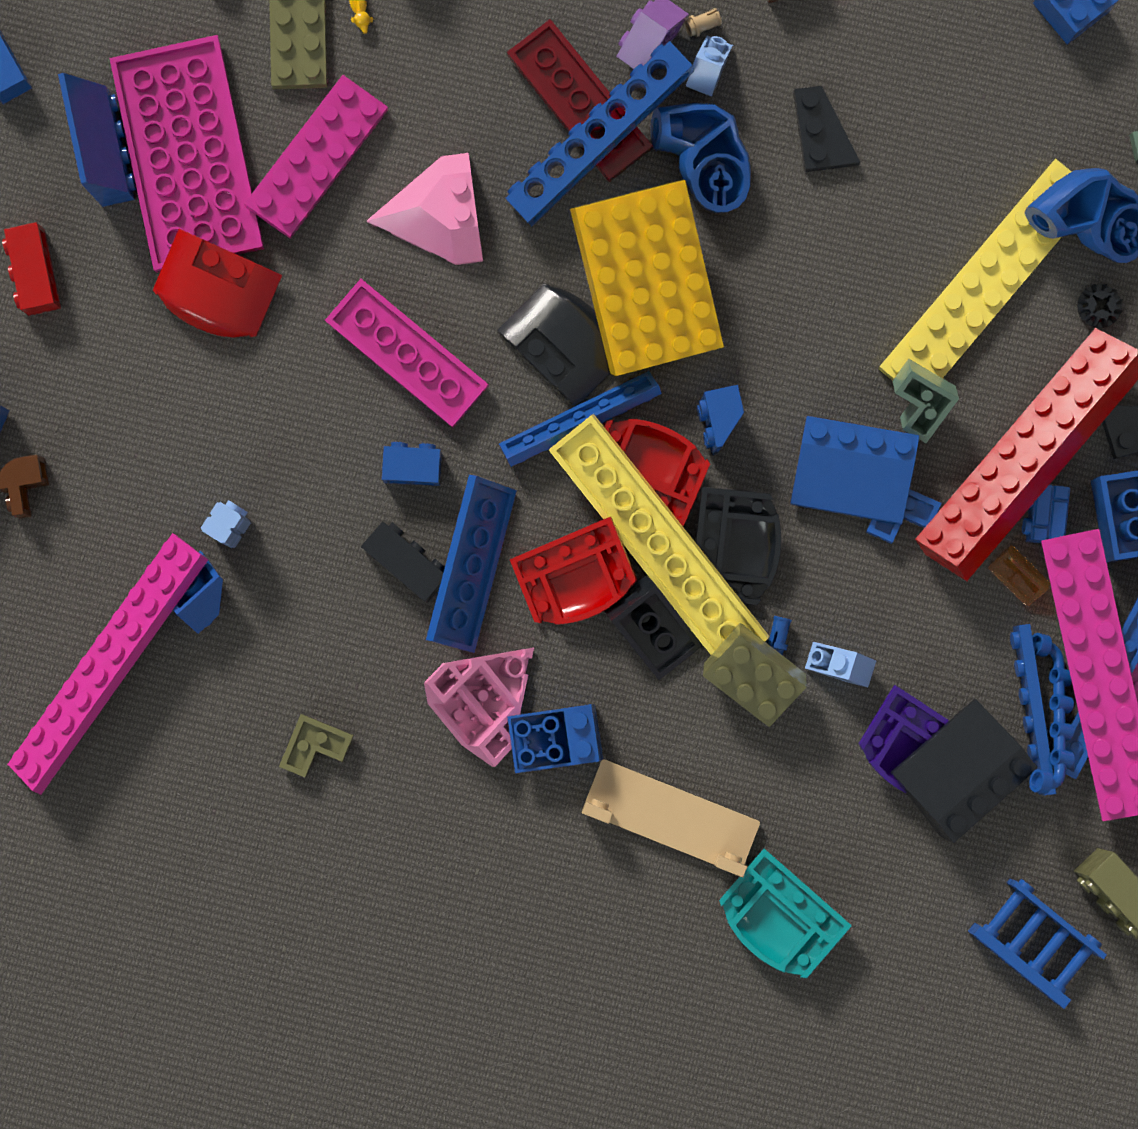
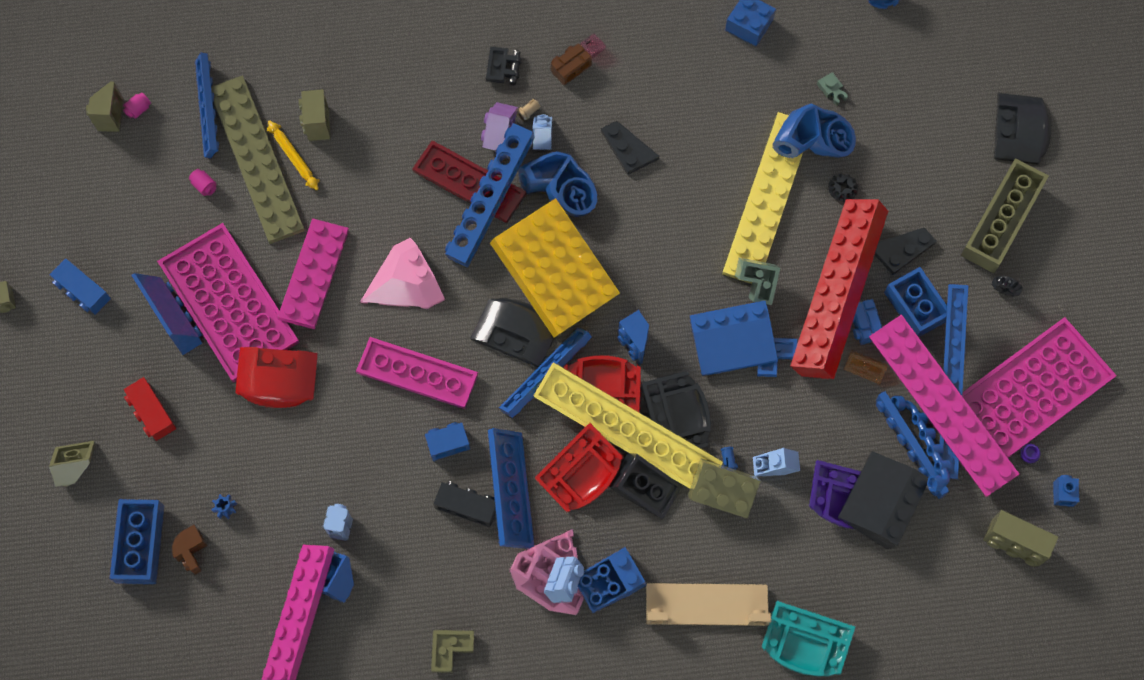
camera: 20 degrees left, 15 degrees down
(91, 448) = (219, 505): none -> blue gear
(493, 718) = (564, 579): none -> light blue brick
(1034, 969) = (985, 613): blue fence -> none

